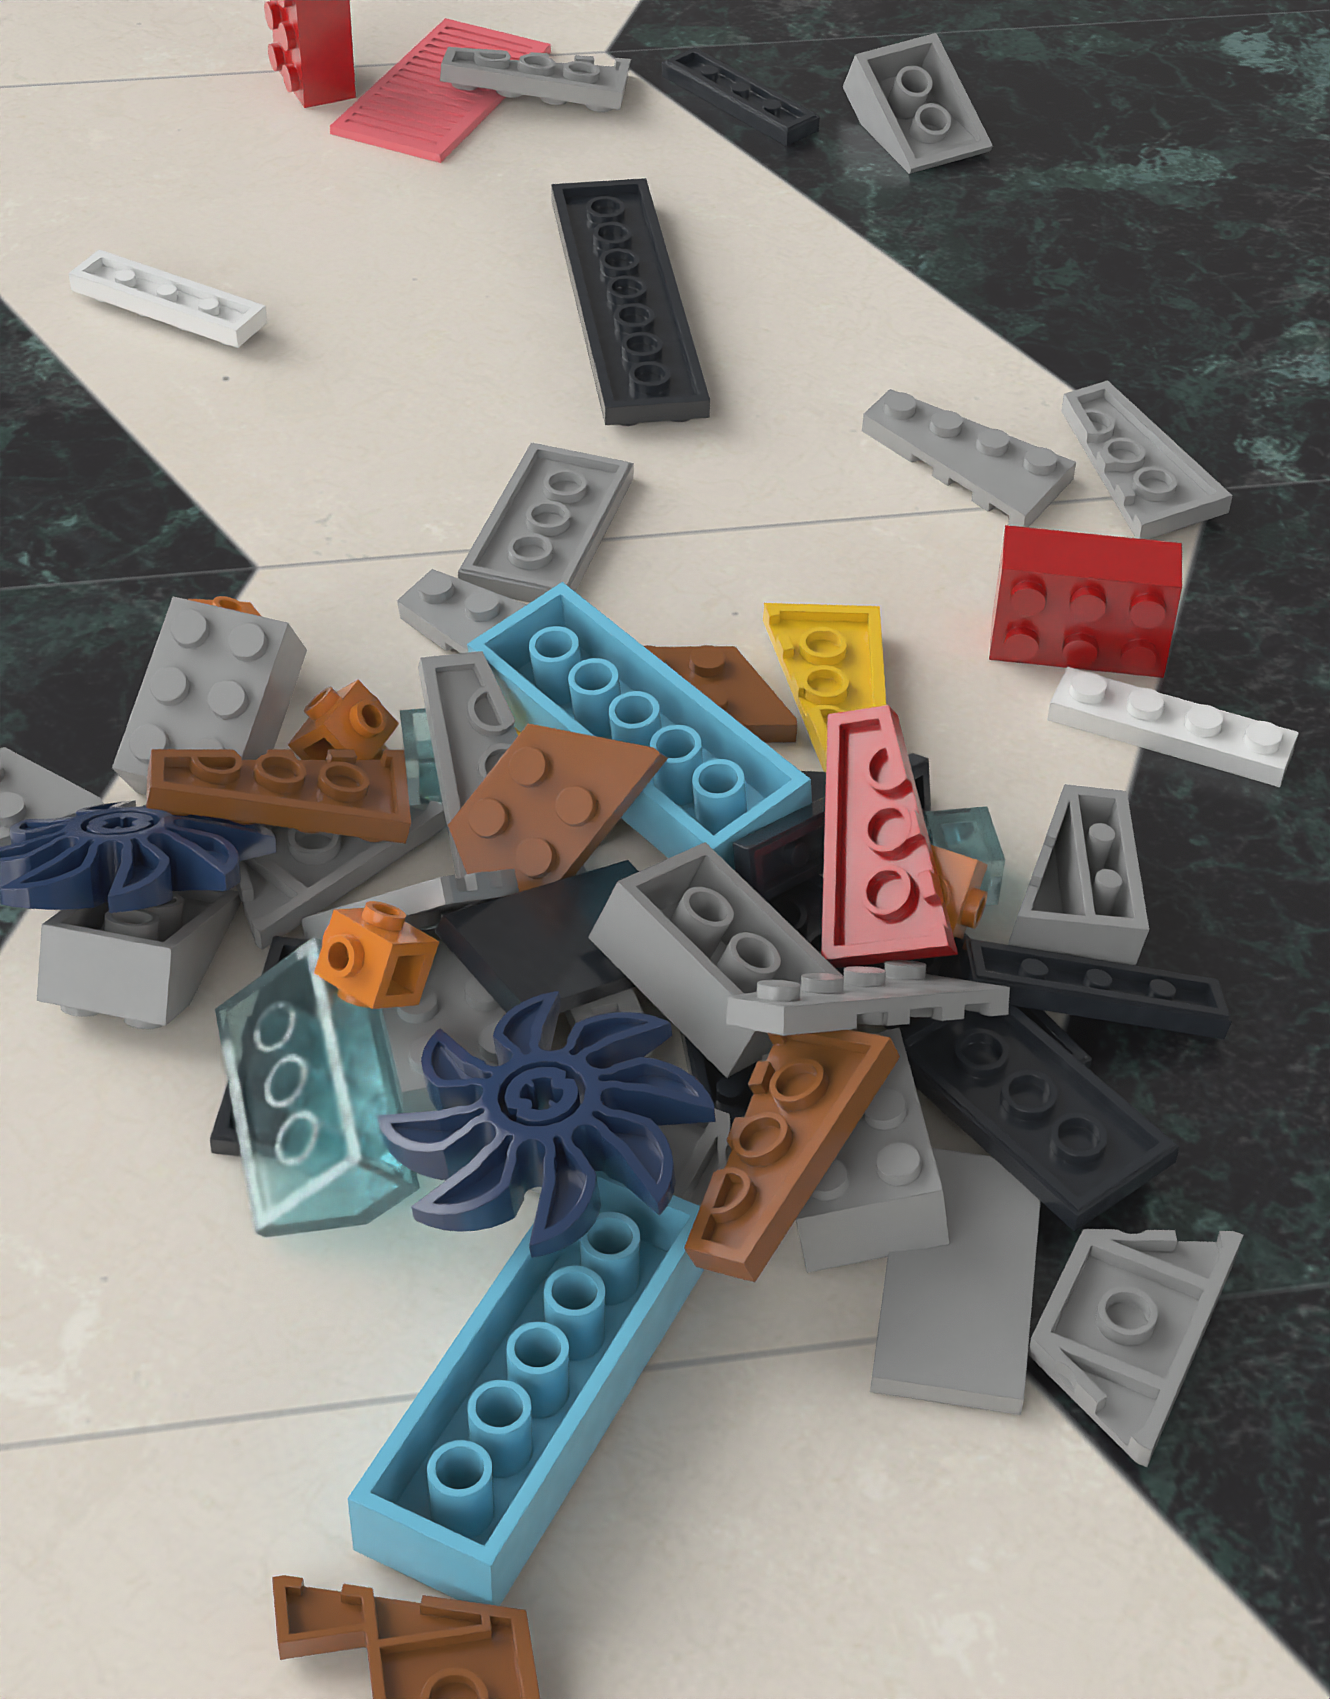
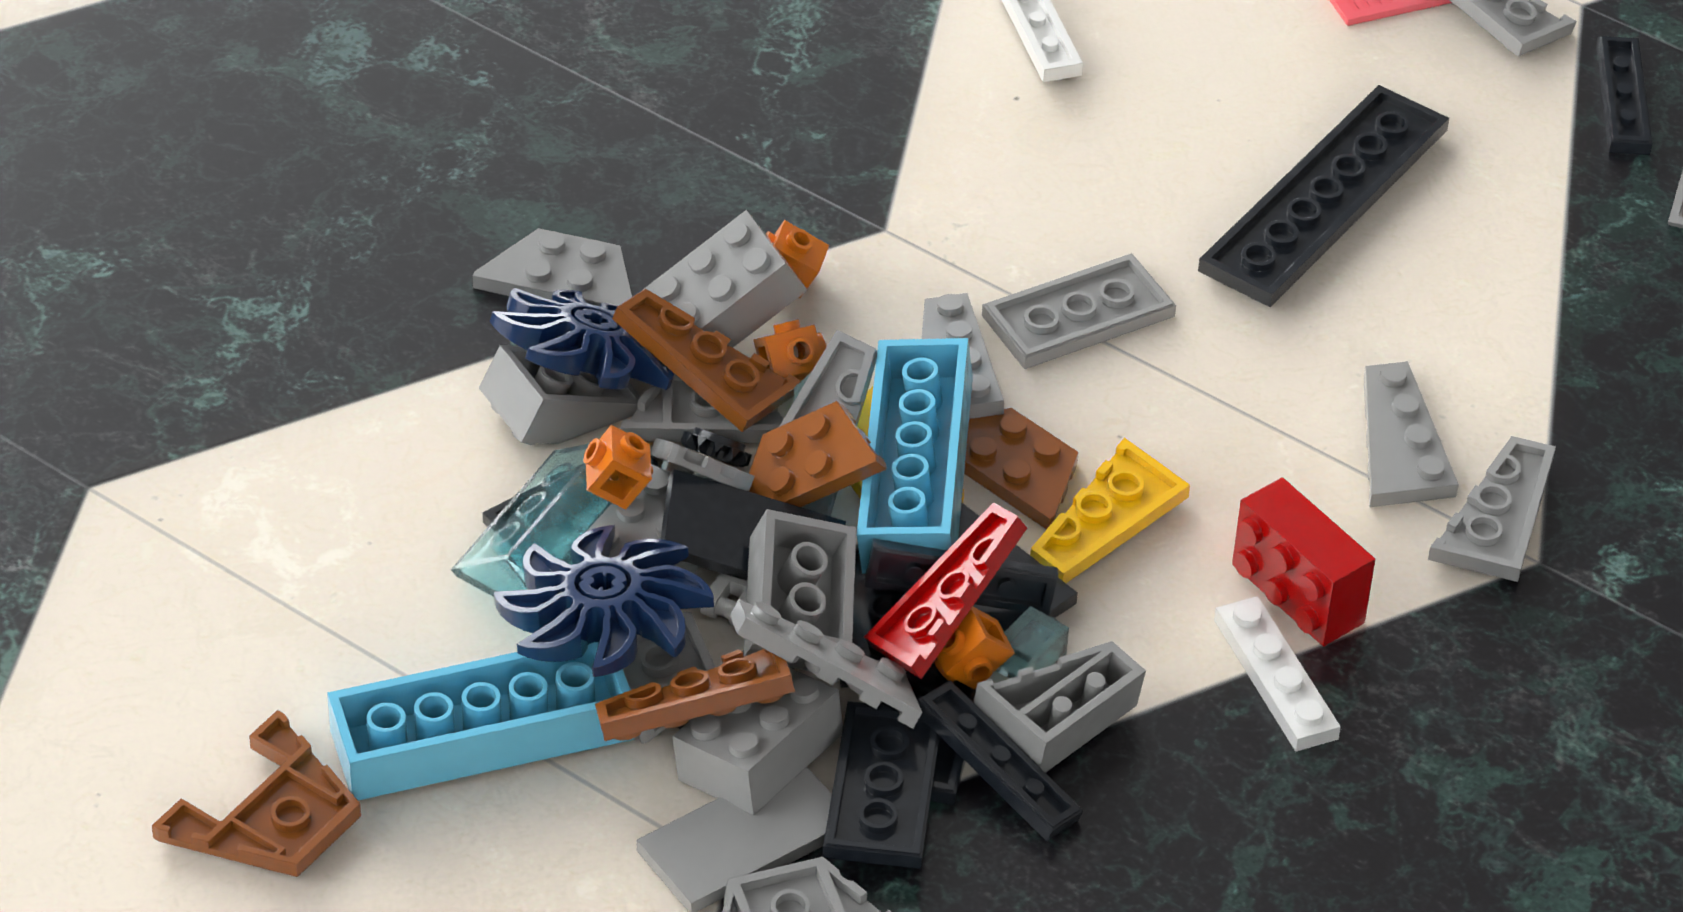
camera: 45 degrees right, 0 degrees up
(391, 876) = (716, 447): none -> black gear

